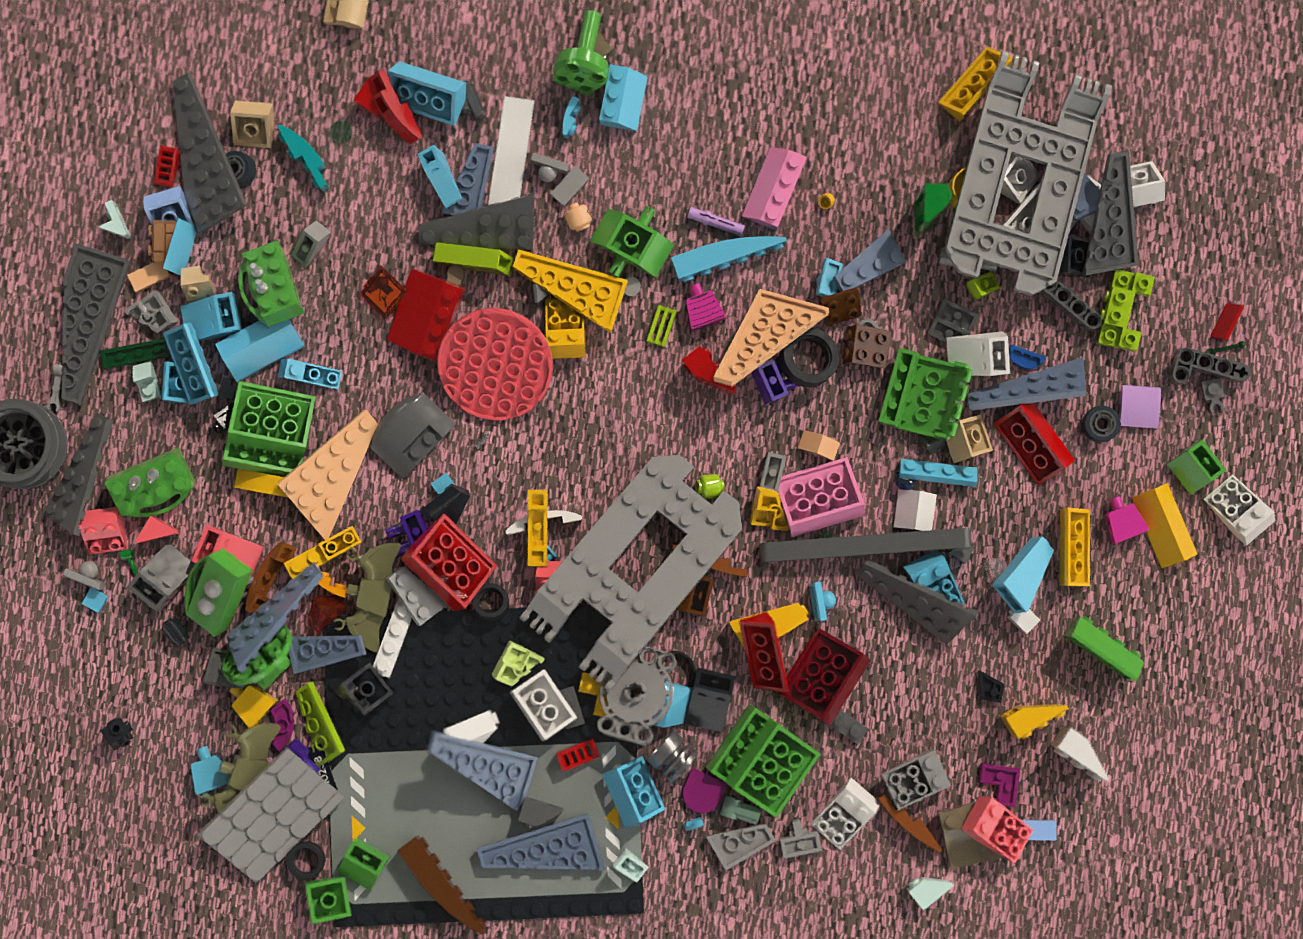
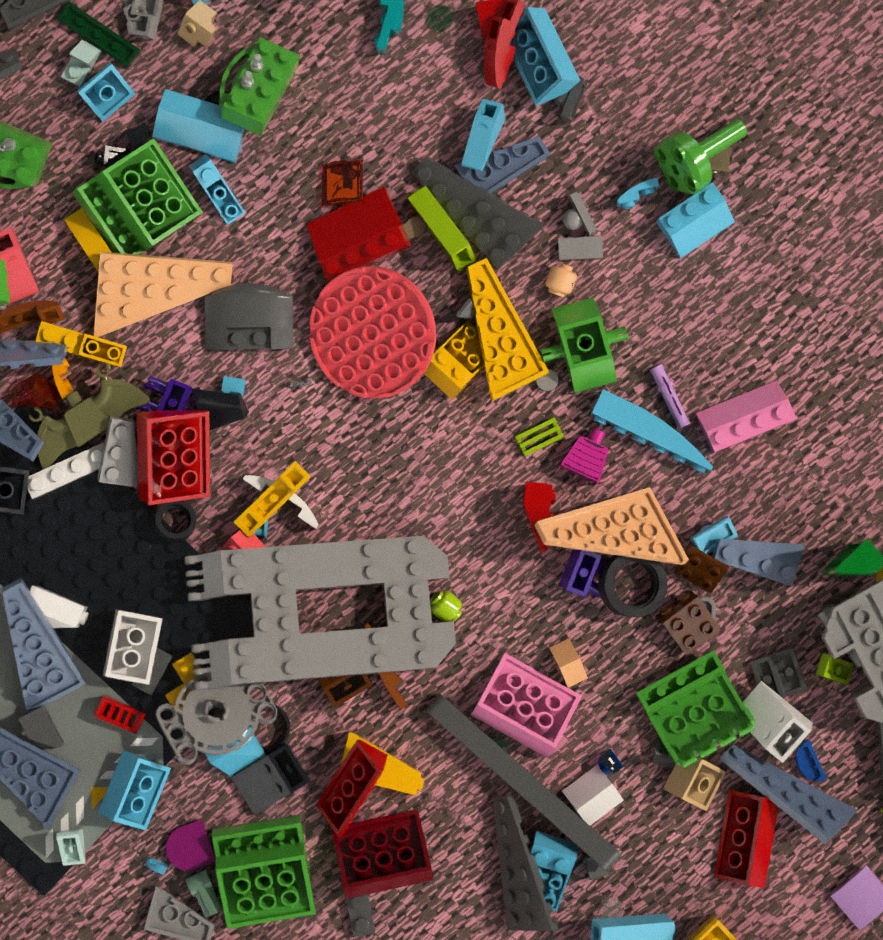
camera: 35 degrees right, 0 degrees up
(190, 363) = (129, 85): medium azure slope -> none
(213, 316) = (184, 64): medium azure slope -> none
(310, 243) = (324, 84): light grey slope -> none
(511, 149) = (563, 171): white sticker -> none
(515, 663) = (144, 590): yellowish green slope -> none
(672, 756) = (194, 794): flat silver wheel -> none
(768, 510) = (473, 674): yellow slope -> none
(772, 471) = (508, 647): light grey slope -> none
(821, 601) = (441, 790): medium azure tile -> none
(826, 201) = (777, 470): yellow hinge -> none
(938, 472) = (642, 784): medium azure plate -> none
(1111, 420) = (829, 879): wheel -> none

